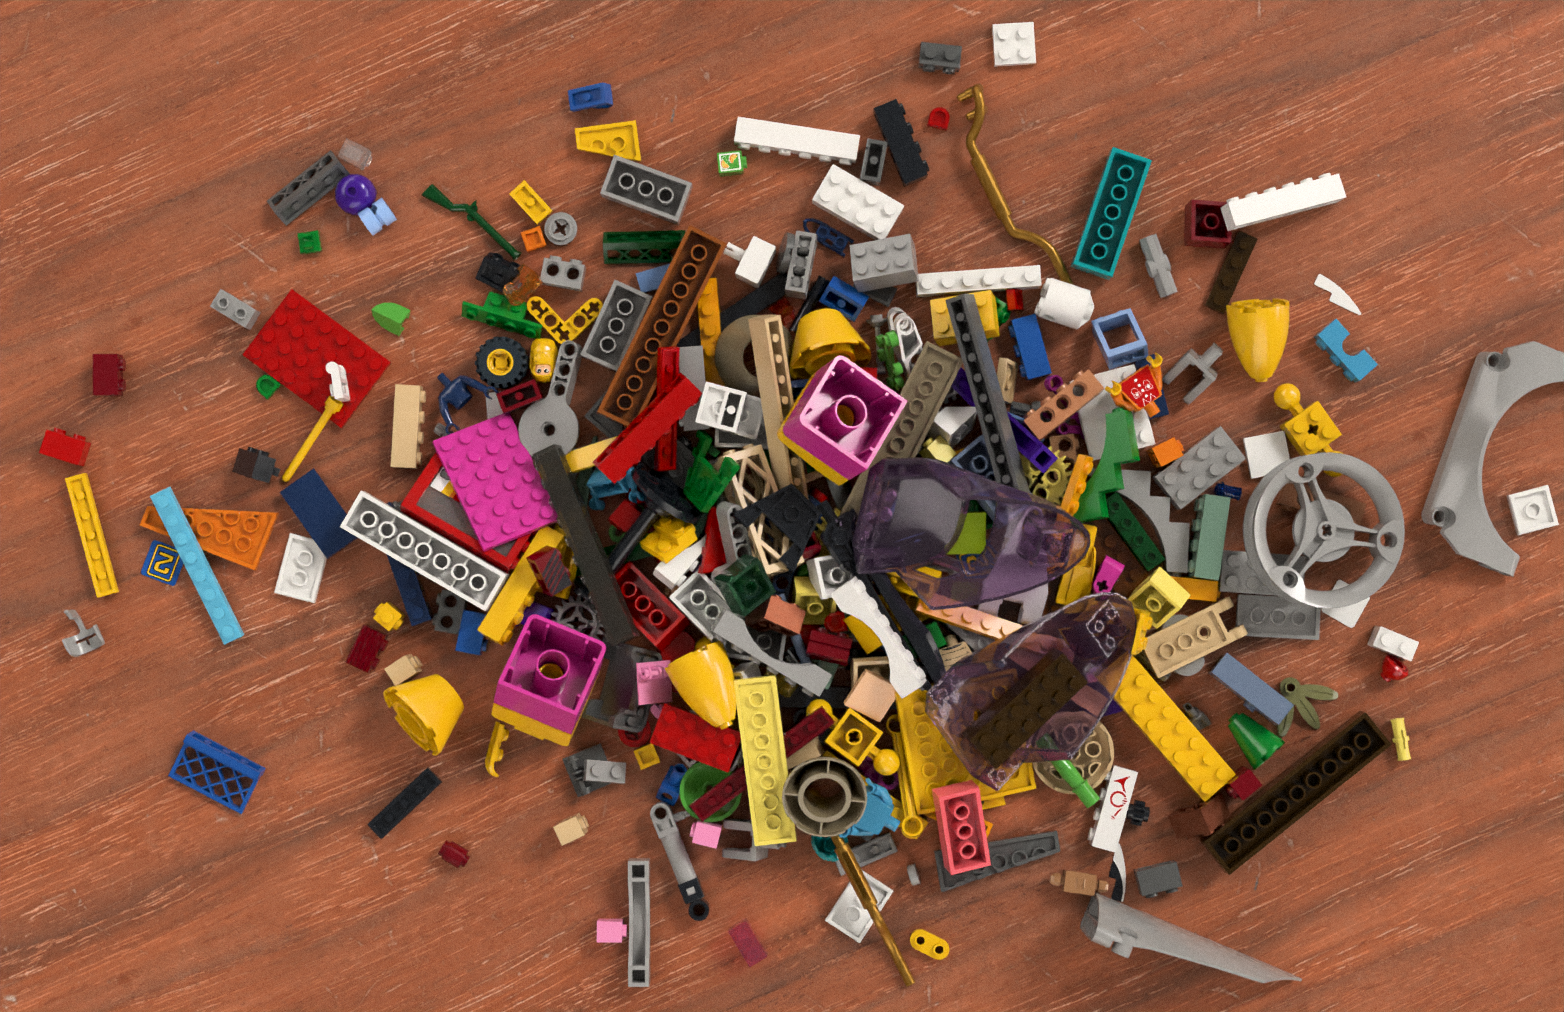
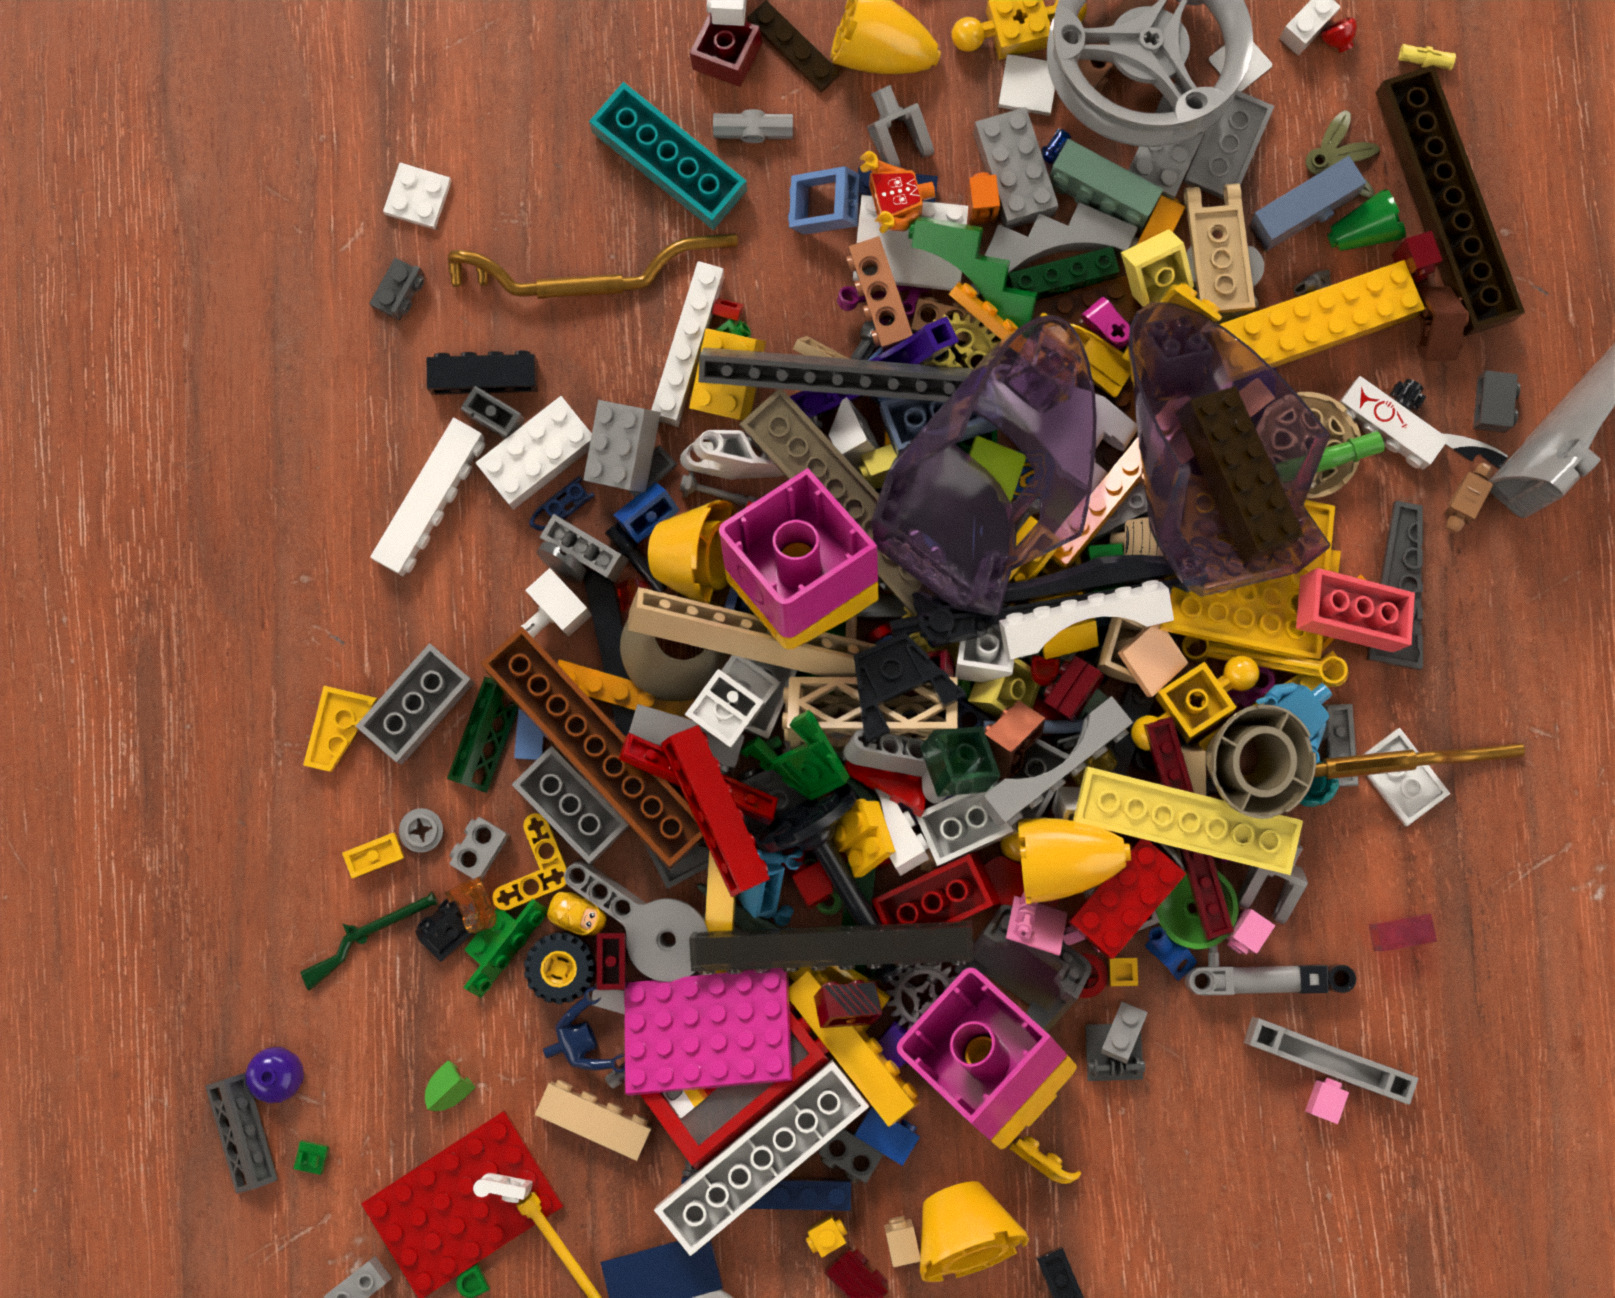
camera: 70 degrees left, 5 degrees down
(355, 154) = (223, 1055): clear brick -> none
(377, 216) = (312, 1057): light blue wheel -> none
(454, 854) = (1160, 1266): dark red brick -> none
(533, 239) = (420, 869): orange tile -> none
(571, 828) = (1182, 1102): tan brick -> none
(591, 96) = (272, 725): blue plate -> none
(731, 163) = (424, 588): bright green brick -> none
(886, 354) = (739, 483): bright green plant -> none
(913, 874) = (1388, 695): light grey tile -> none
(930, 943) = (1481, 708): yellow plate -> none
(939, 118) = (472, 318): red tile -> none
(1029, 347) = (792, 313): blue brick -> none
(1064, 303) = (756, 250): white cylinder -> none

